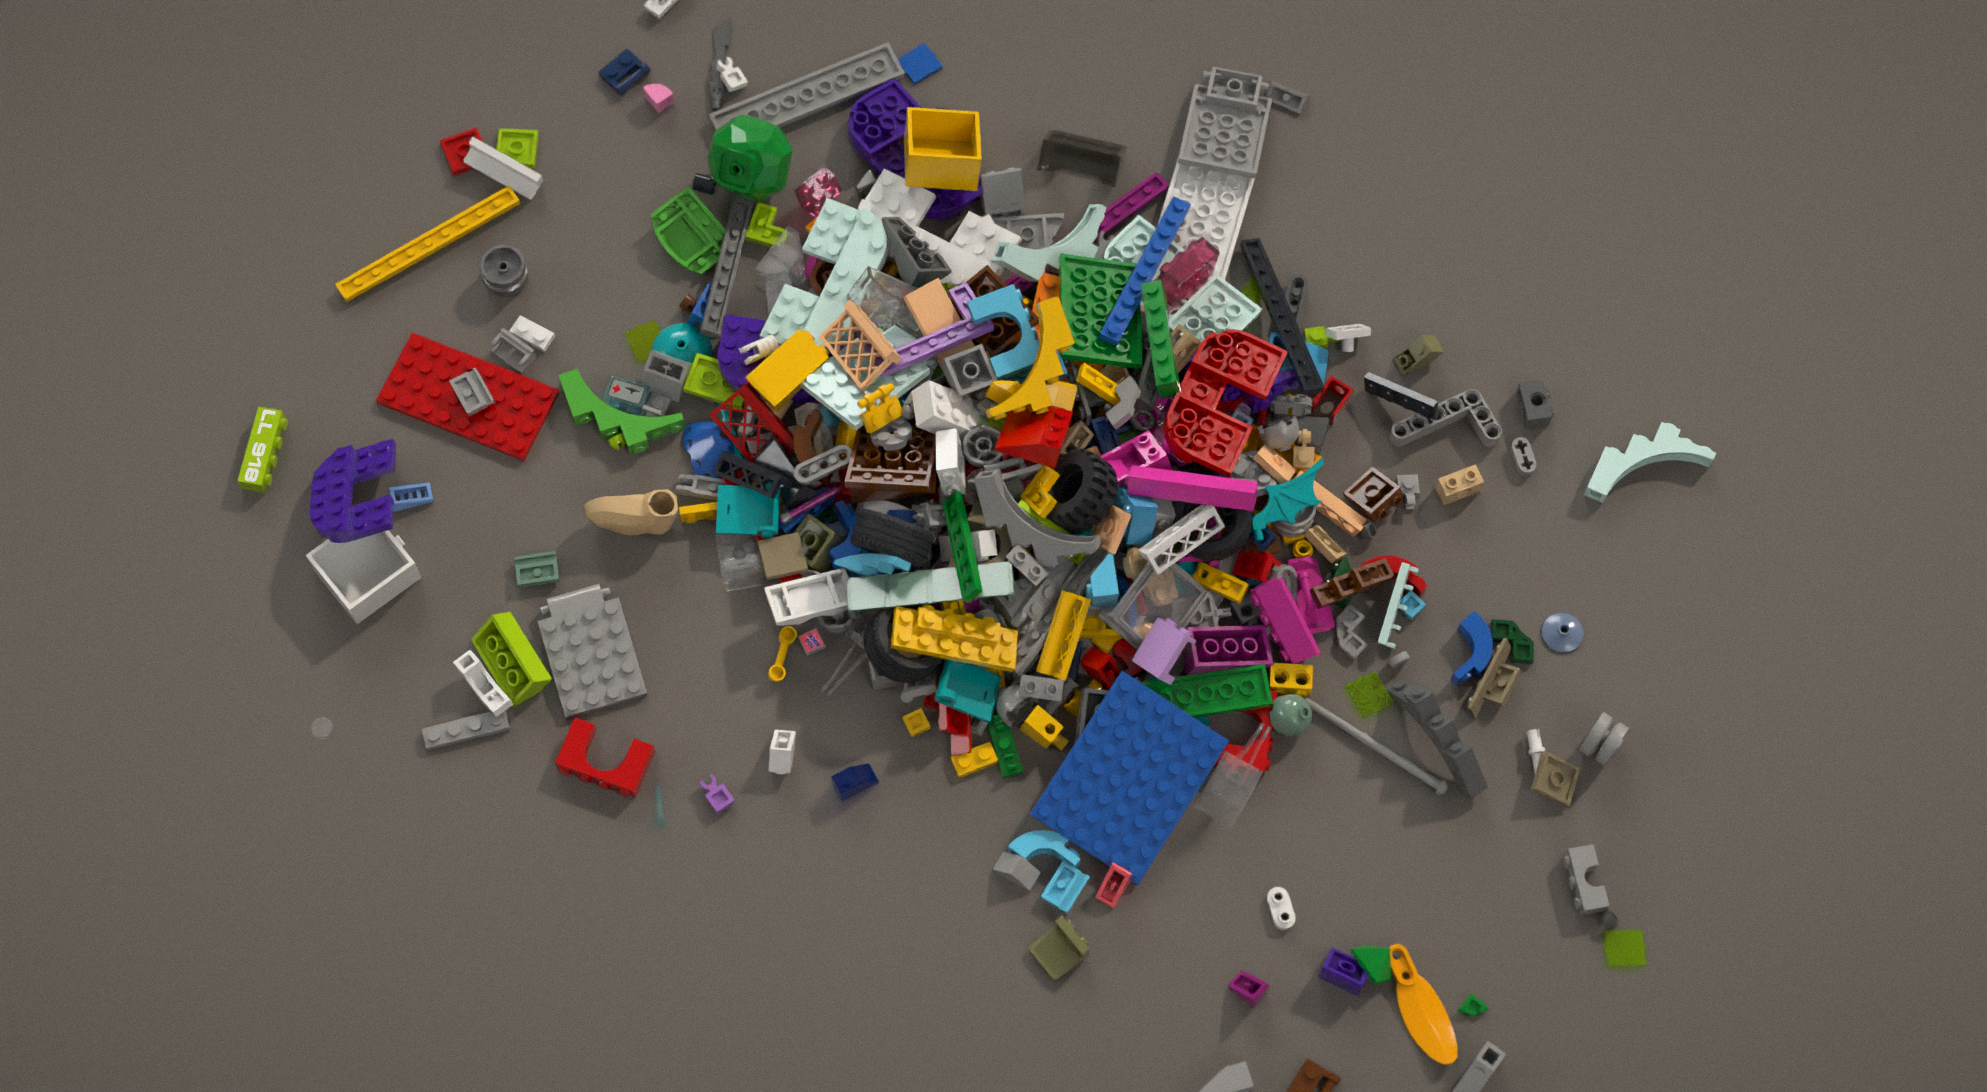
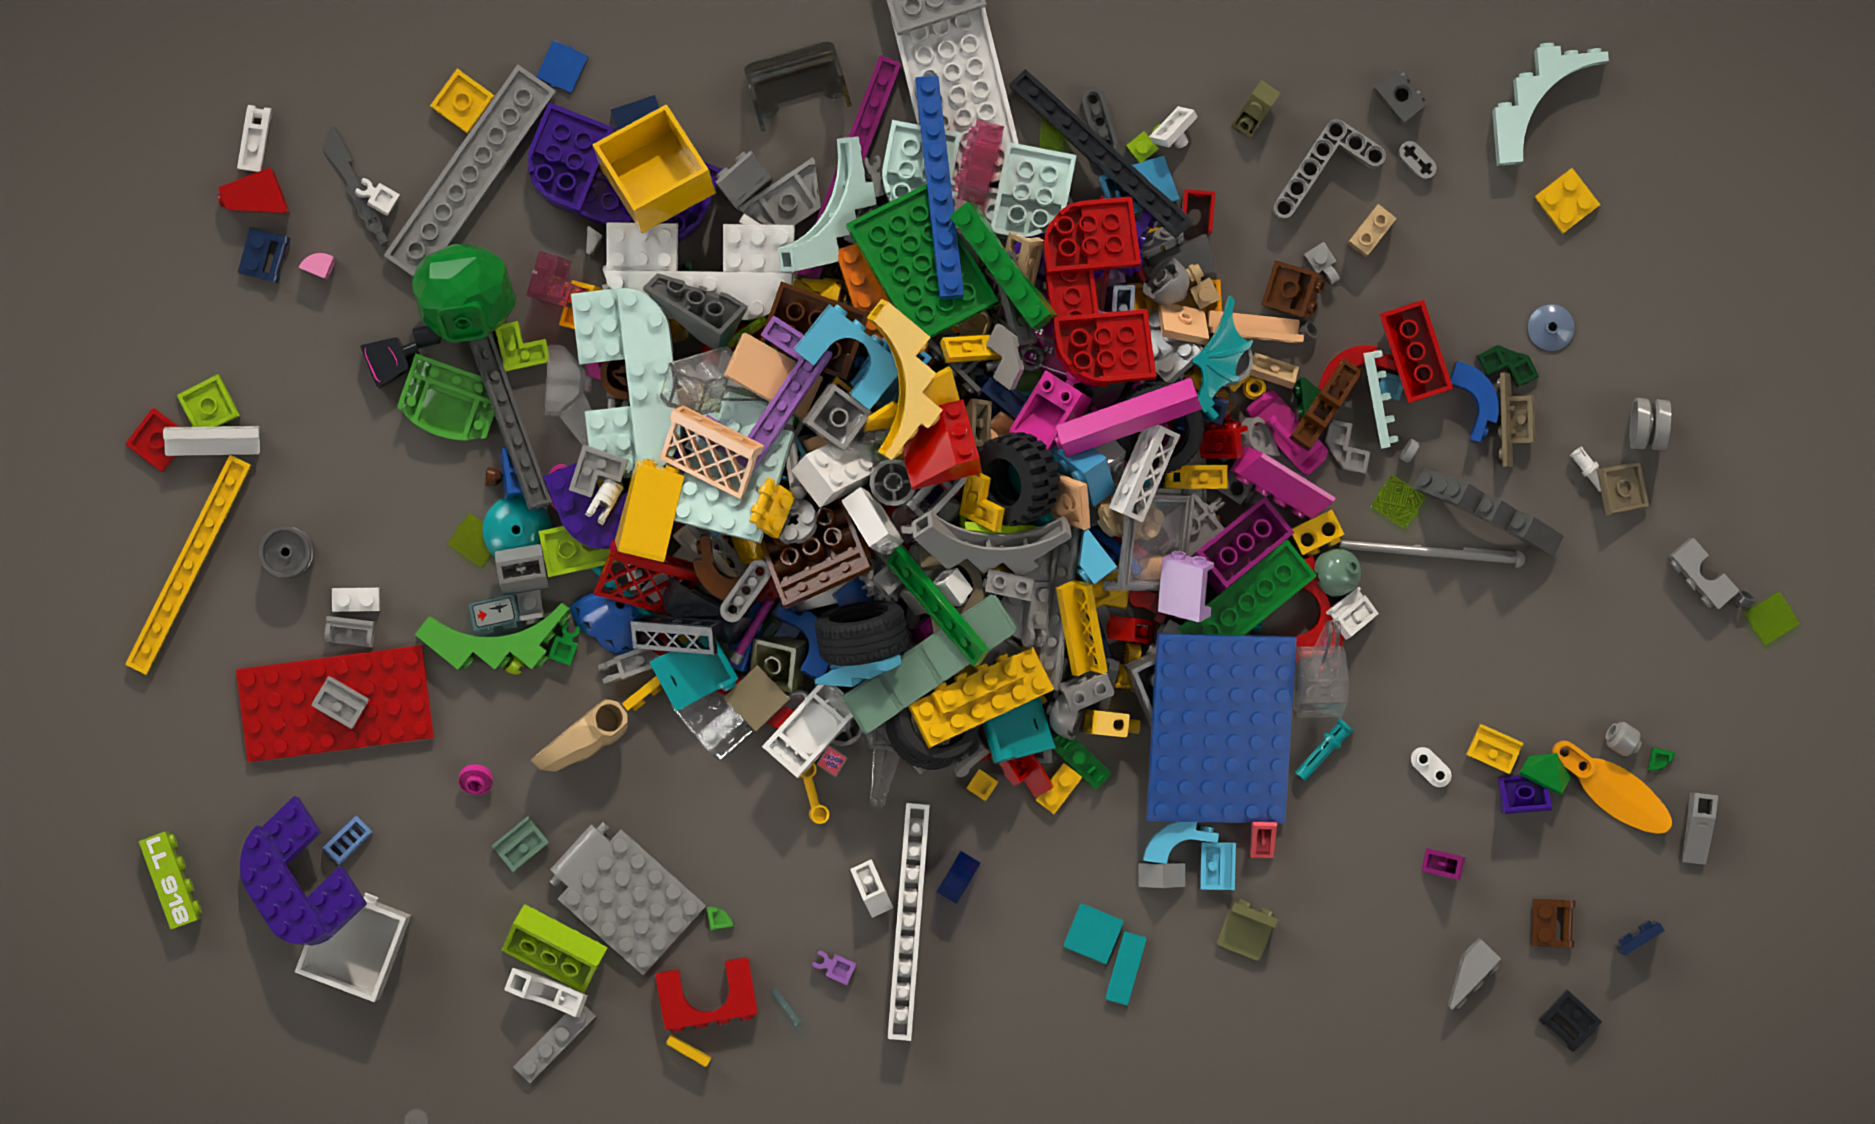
camera: 30 degrees left, 20 degrees up
(534, 503) = (475, 779): none -> dark pink plate
(563, 793) = (688, 1050): none -> yellow tile
(644, 28) = (254, 194): none -> red slope
(650, 709) = (718, 918): none -> bright green tile
(663, 449) = (564, 648): none -> green plate
(664, 183) = (388, 359): none -> black torso
(765, 319) = (593, 463): none -> light grey plate
(794, 790) = (908, 921): none -> white brick
(832, 45) = (462, 101): none -> yellow plate
(934, 884) = (1093, 933): none -> teal tile
(944, 926) = (1125, 968): none -> teal tile
(1211, 843) = (1331, 741): none -> teal pin
(1284, 752) = (1353, 612): none -> white plate
(1341, 921) = (1494, 748): none -> yellow plate
(1401, 396) = (1274, 171): black plate -> none
(1445, 587) = (1416, 351): none -> red slope
(1451, 971) = (1623, 738): none -> light grey head
(1625, 547) = (1567, 200): none -> yellow plate

